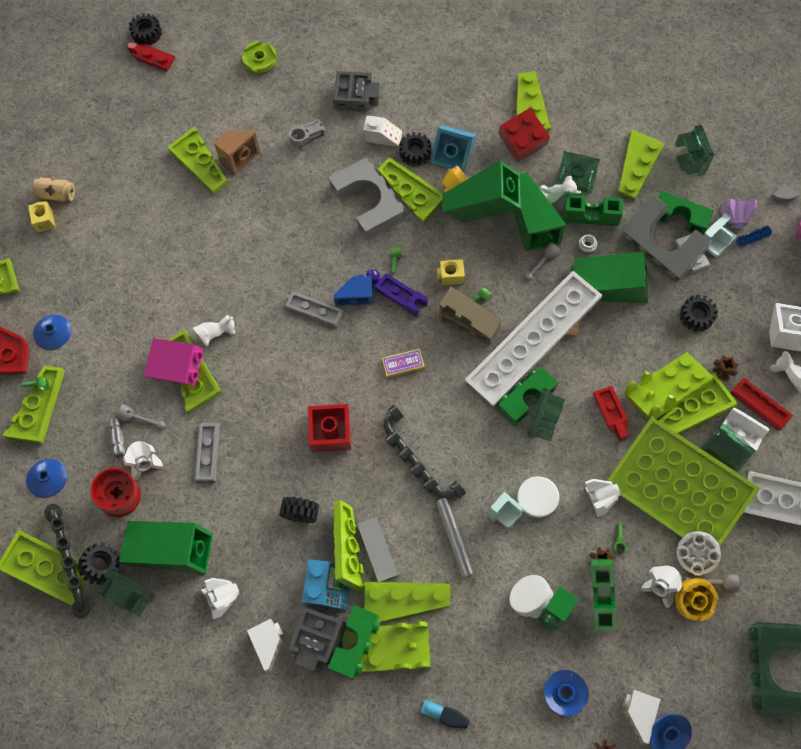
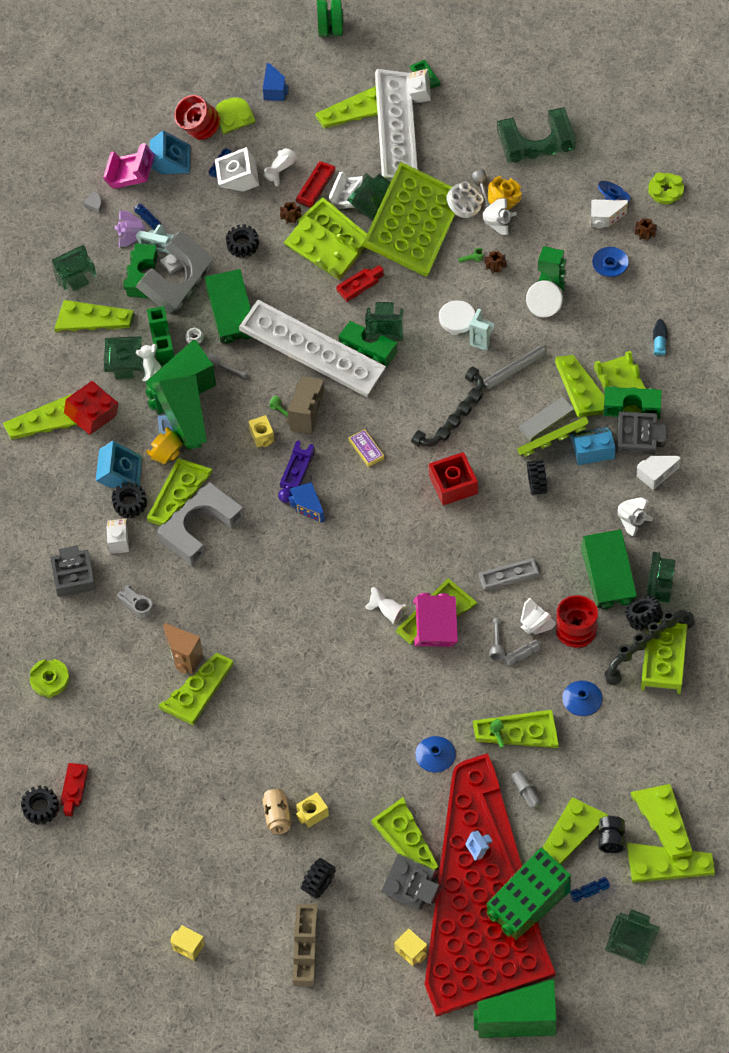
camera: 105 degrees left, 10 degrees down
(314, 309) = (335, 535): light grey tile -> none
(395, 253) = (253, 485): bright green hand -> none
(602, 495) = (441, 269): white brick -> none
(604, 595) = (513, 248): green arch -> none

